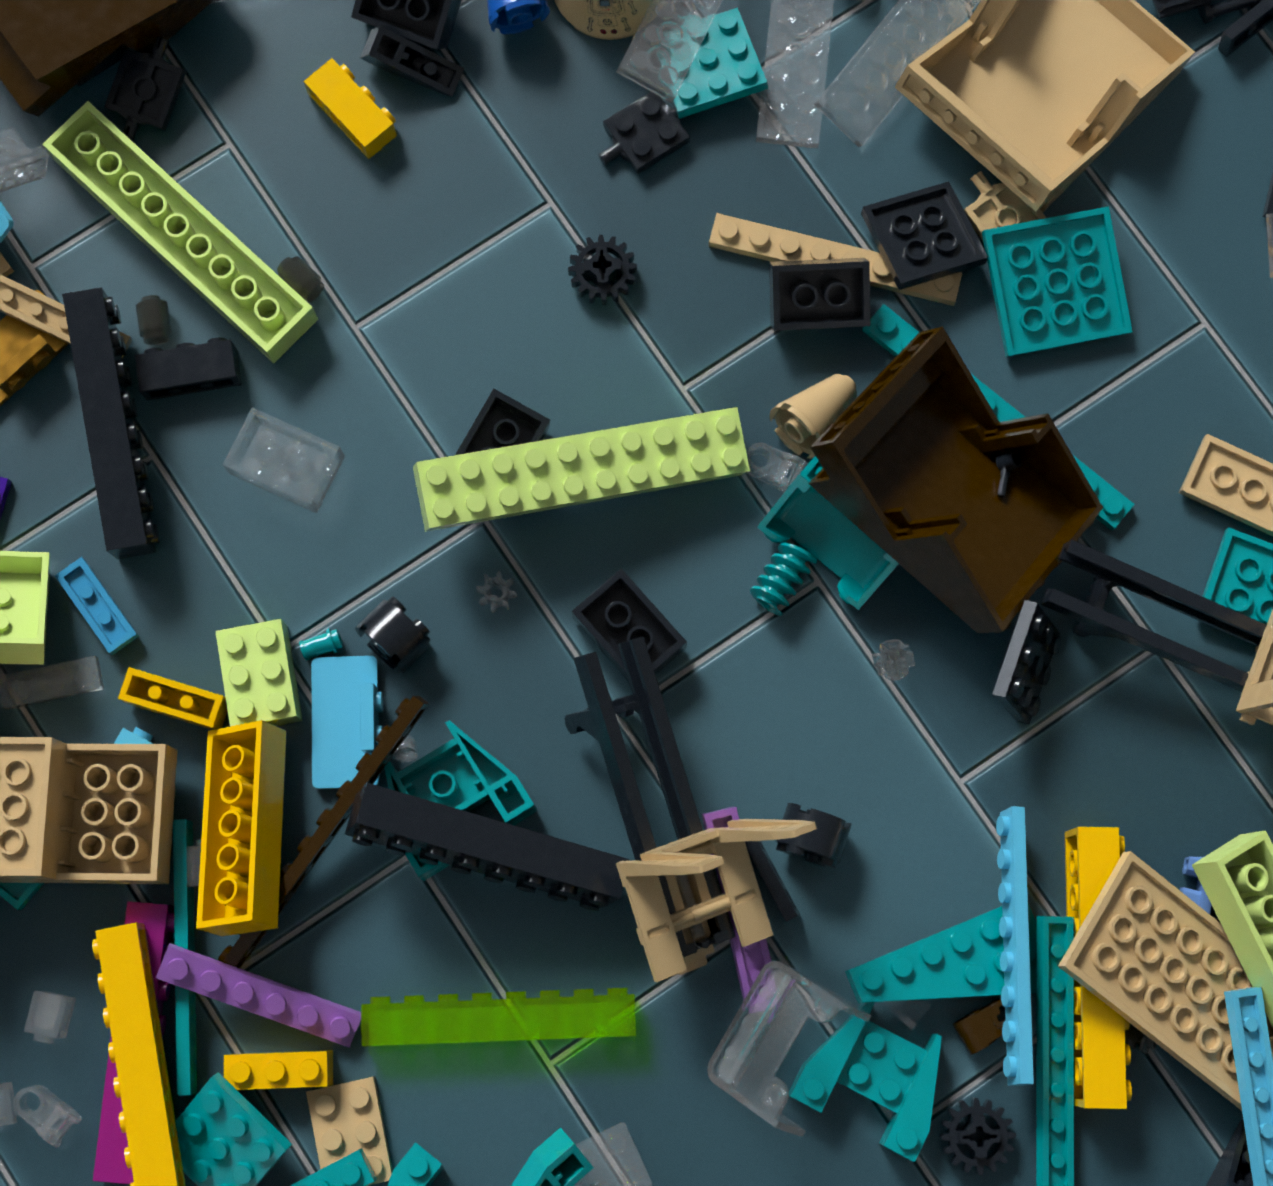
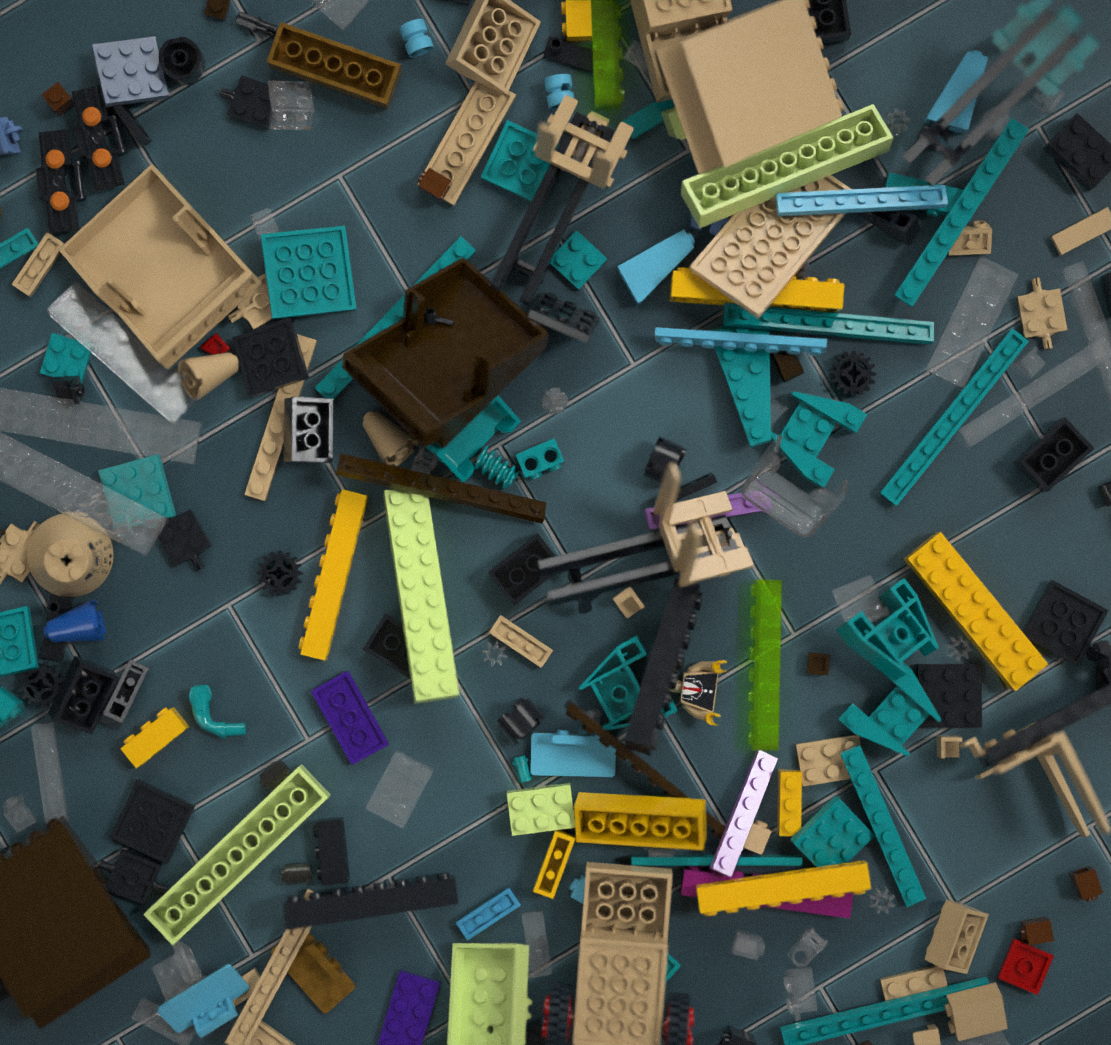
camera: 85 degrees left, 10 degrees up
(222, 1020) = (757, 837): none -> tan brick
(227, 113) = (152, 821): none -> black plate
(390, 384) = (350, 717): none -> dark purple plate
(407, 168) = (199, 698): none -> teal piece
(453, 913) = (699, 689): none -> torso
(504, 1105) = (818, 663): none -> dark brown plate
(517, 631) = (521, 641): none -> tan plate
(587, 793) = (628, 602): none -> tan panel
(604, 347) = (334, 574): none -> yellow brick
(745, 493) = (441, 488): none -> dark brown plate
(809, 640) = (537, 453): none -> teal brick
(894, 145) = (206, 373): none -> tan cone
(934, 161) = (215, 345): none -> red tile
(1115, 684) = (577, 260): none -> teal plate
(1116, 798) = (650, 268): none -> medium azure slope
(1126, 214) = (264, 222): none -> clear panel
(1211, 456) = (434, 184): none -> reddish brown brick

